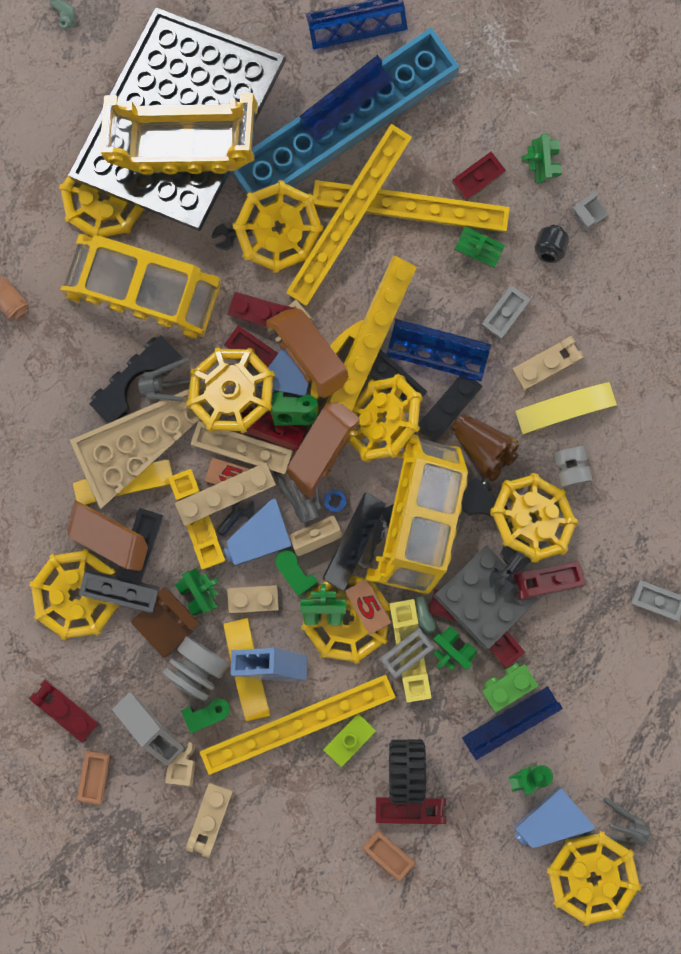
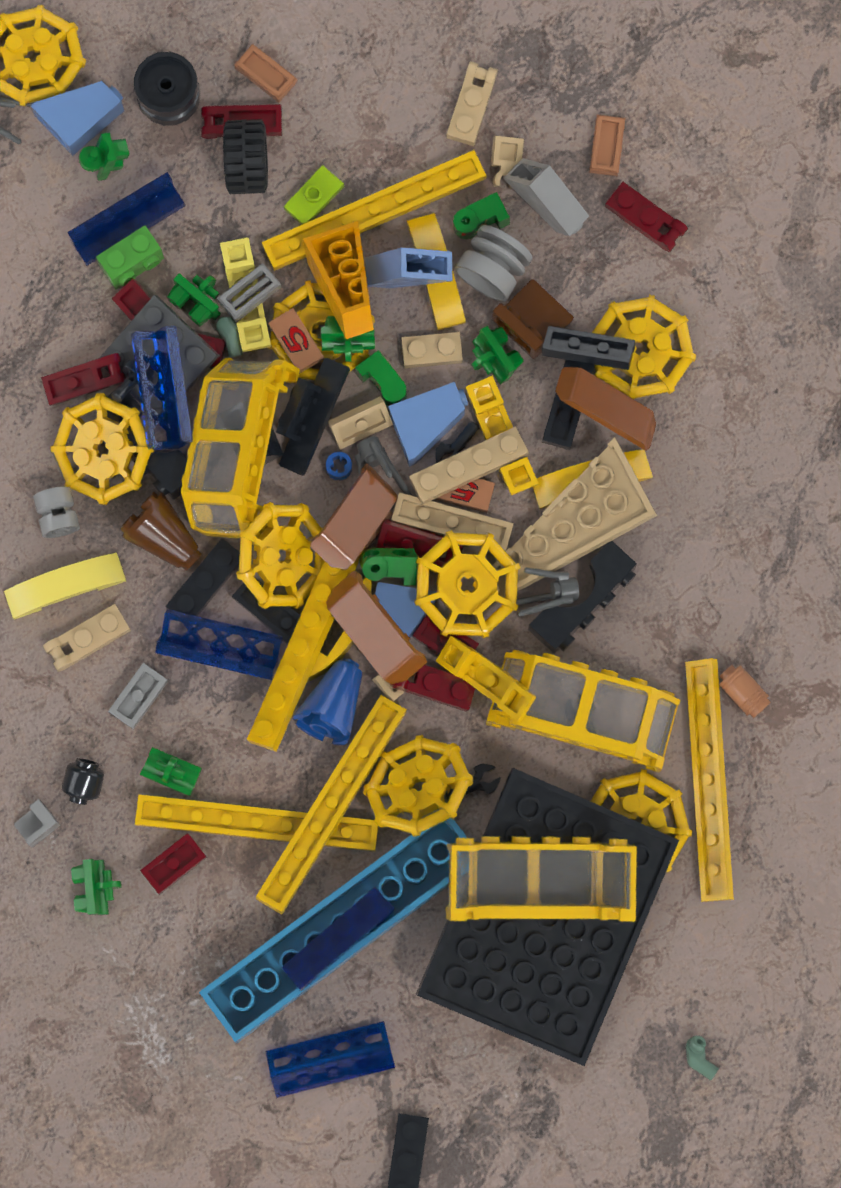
camera: 175 degrees right, 5 degrees down
(41, 228) = (709, 780): none -> yellow plate
(214, 308) = (487, 678): none -> yellow slope
(327, 662) = (340, 273): none -> light orange wedge
(345, 299) = (332, 704): none -> blue cone
(474, 564) = (171, 385): none -> clear blue fence
(479, 855) = (167, 88): none -> black wheel

